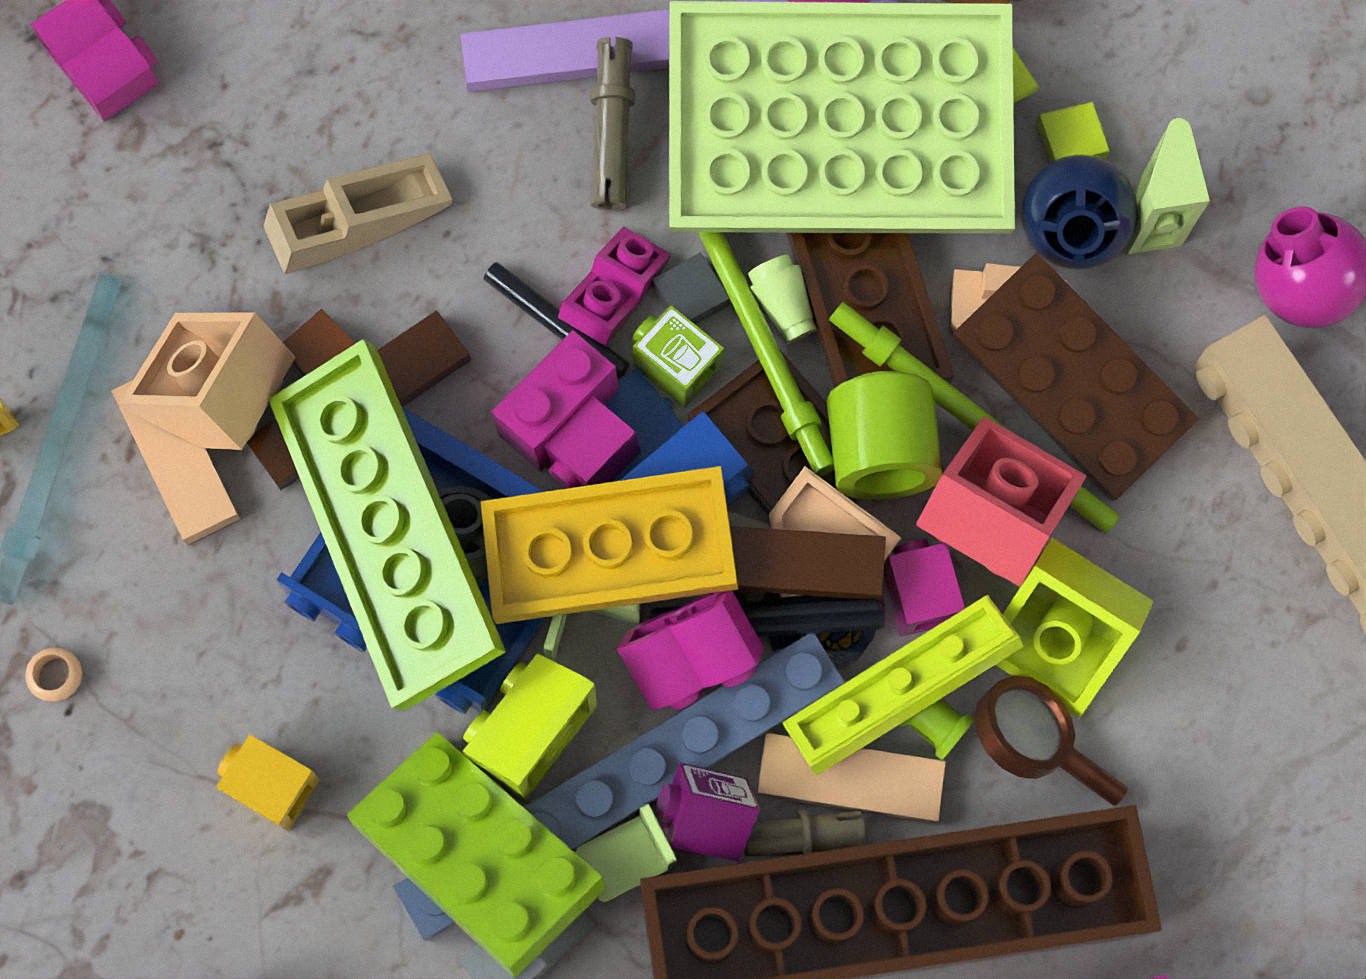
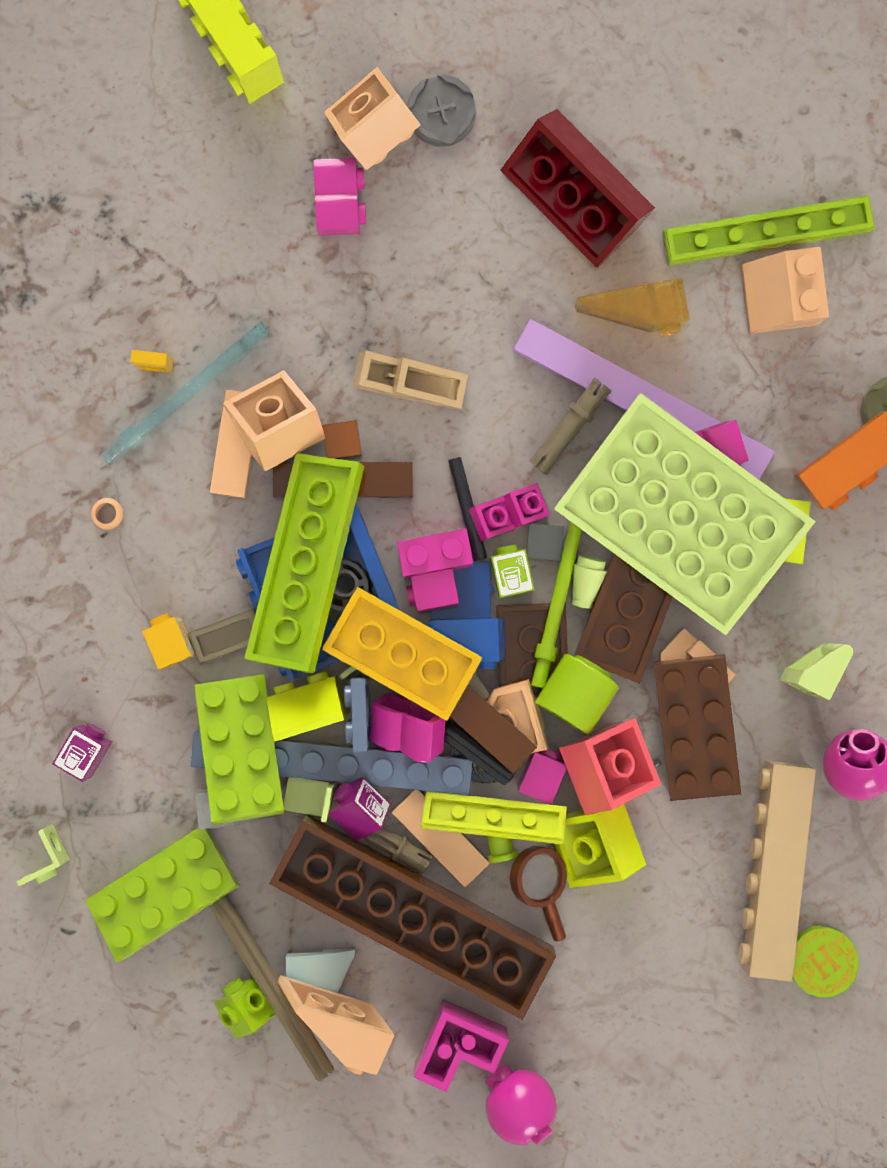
camera: 40 degrees right, 15 degrees up
(343, 723) = (222, 637): none -> dark tan tile
(623, 693) = (359, 727): none -> sand blue plate
(884, 347) = (614, 647): lime bar -> none
(1072, 132) = (800, 600): neon yellow tile -> none
(1079, 211) = (766, 649): dark blue brick -> none

